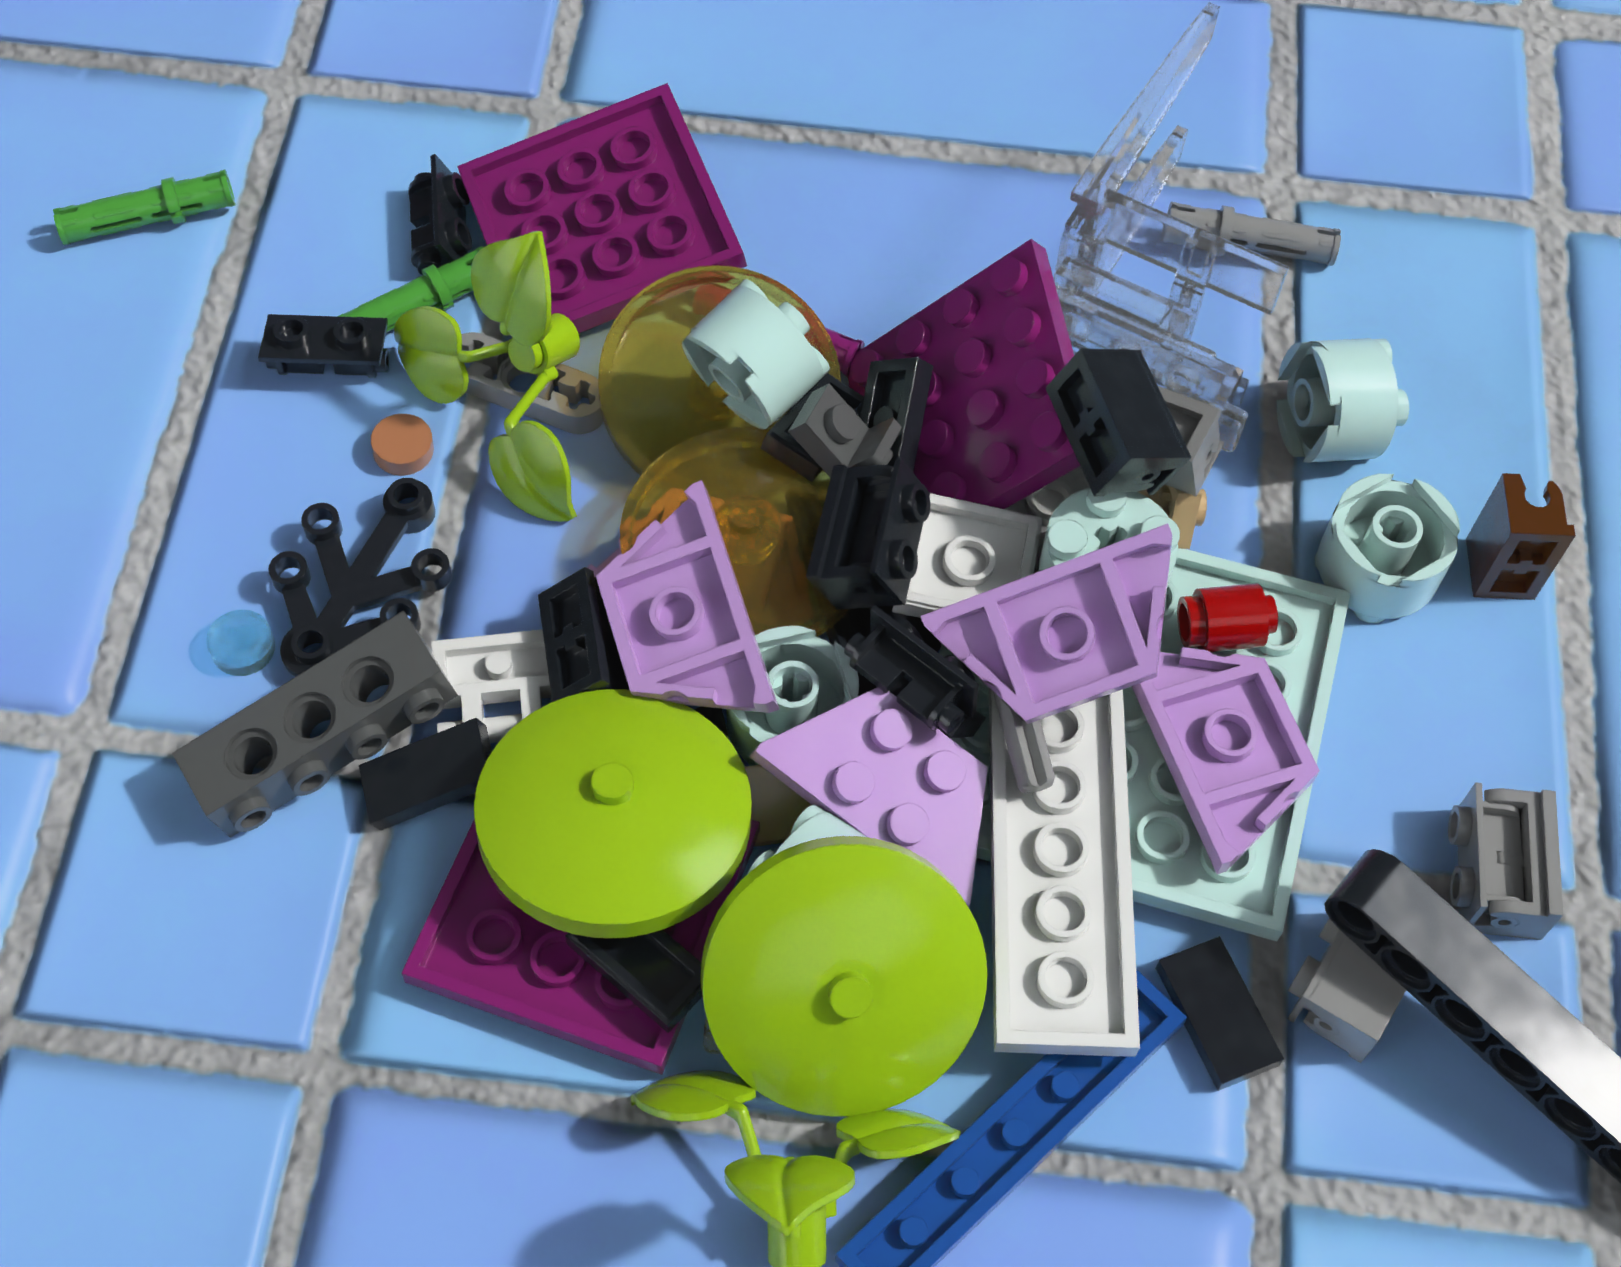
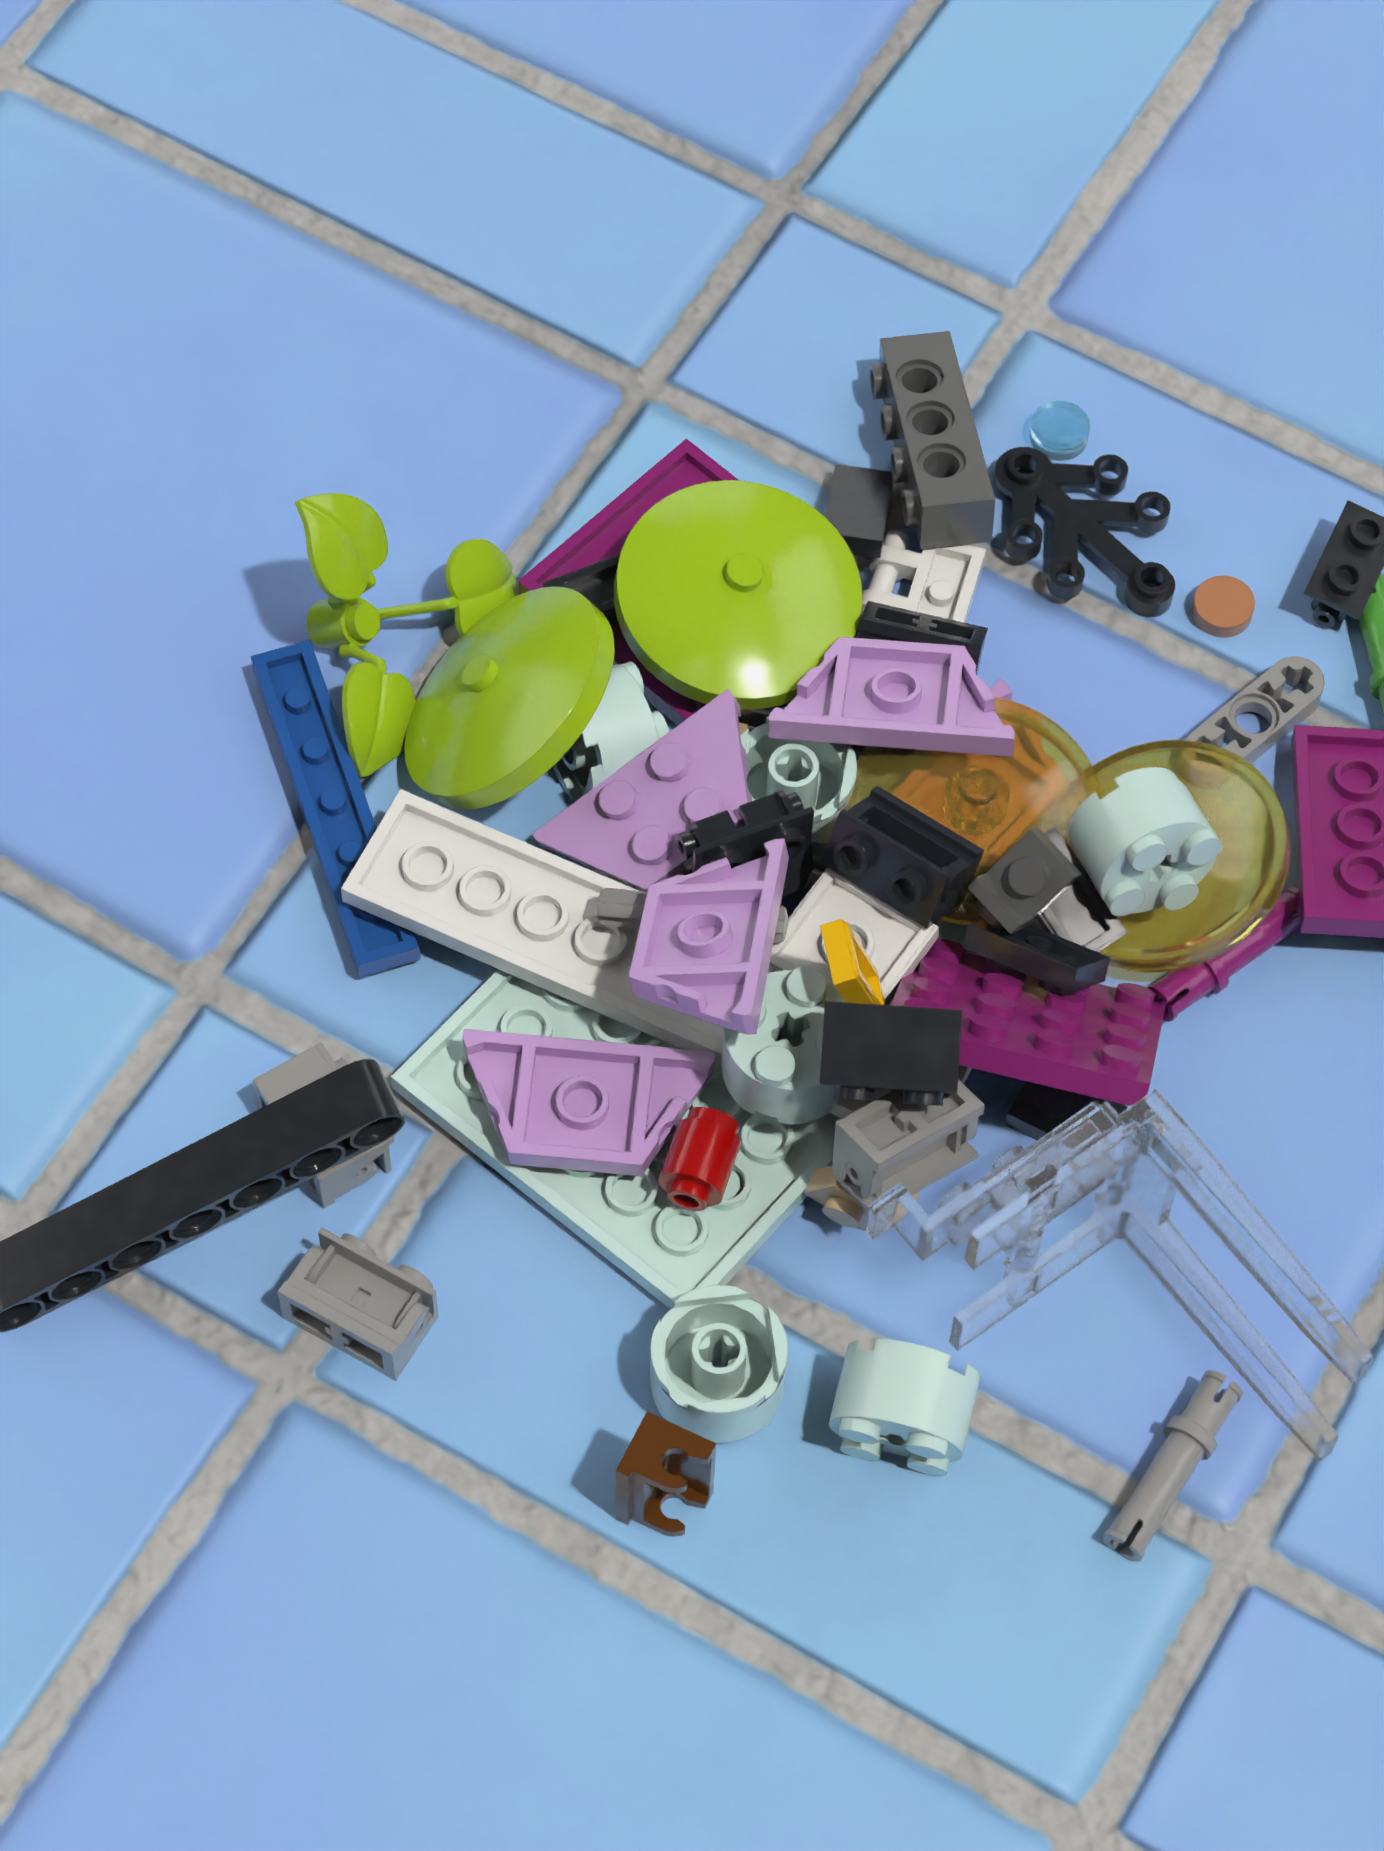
camera: 115 degrees right, 0 degrees up
(513, 289) = (1264, 711): lime plant -> none
(1043, 495) = (850, 965): none -> yellow tile
(1219, 1013) = (354, 1009): black tile -> none

